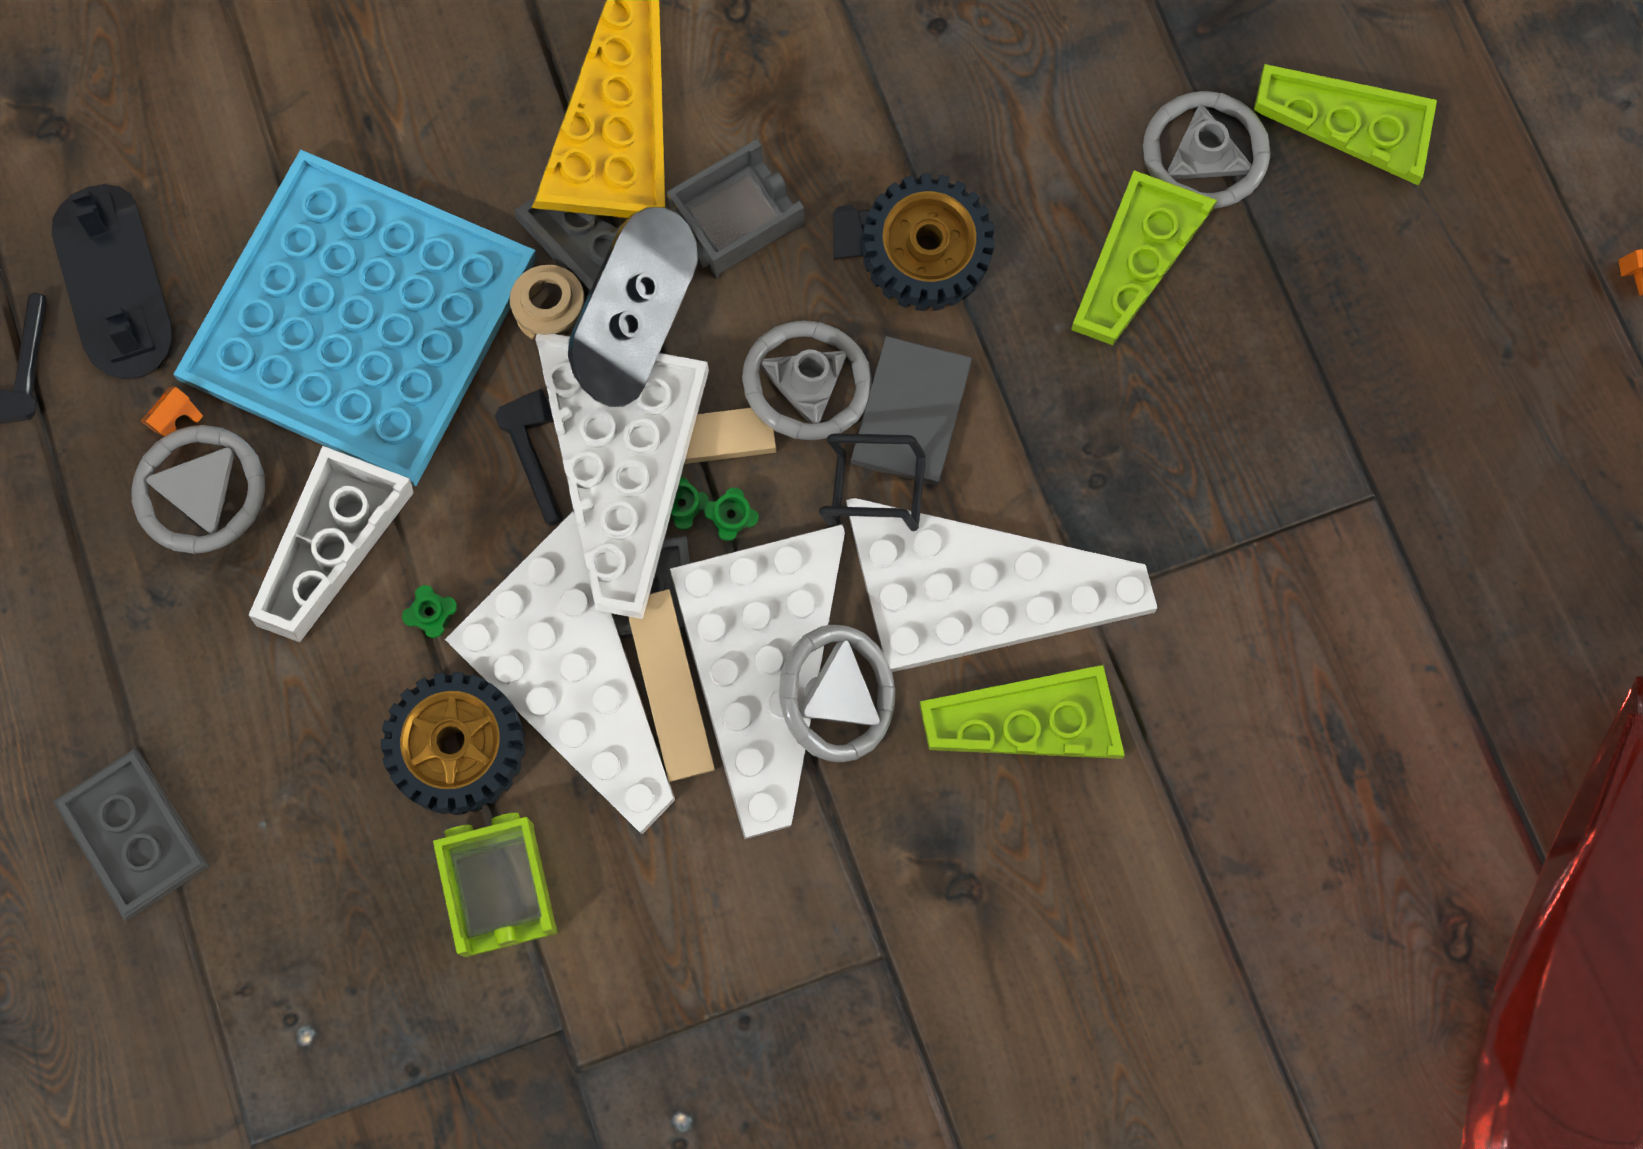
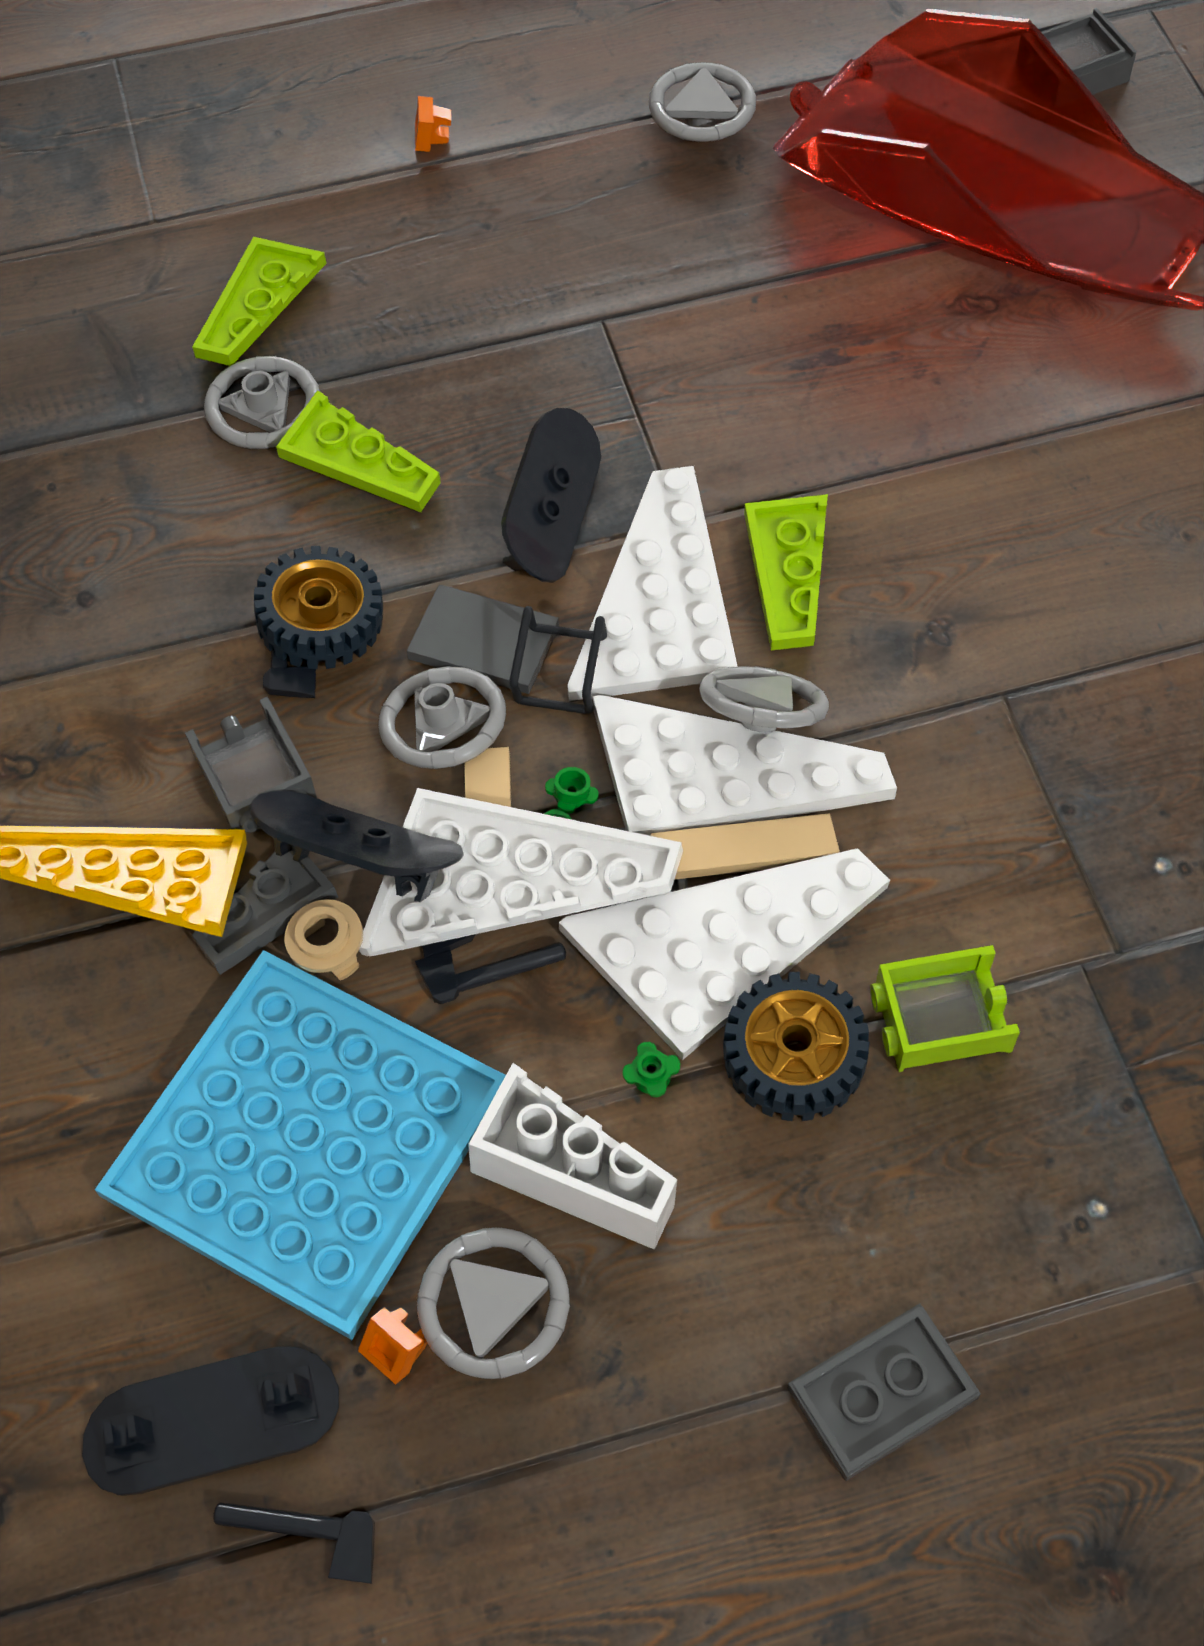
camera: 85 degrees left, 15 degrees down
(1089, 455) = (550, 494): none -> black piece

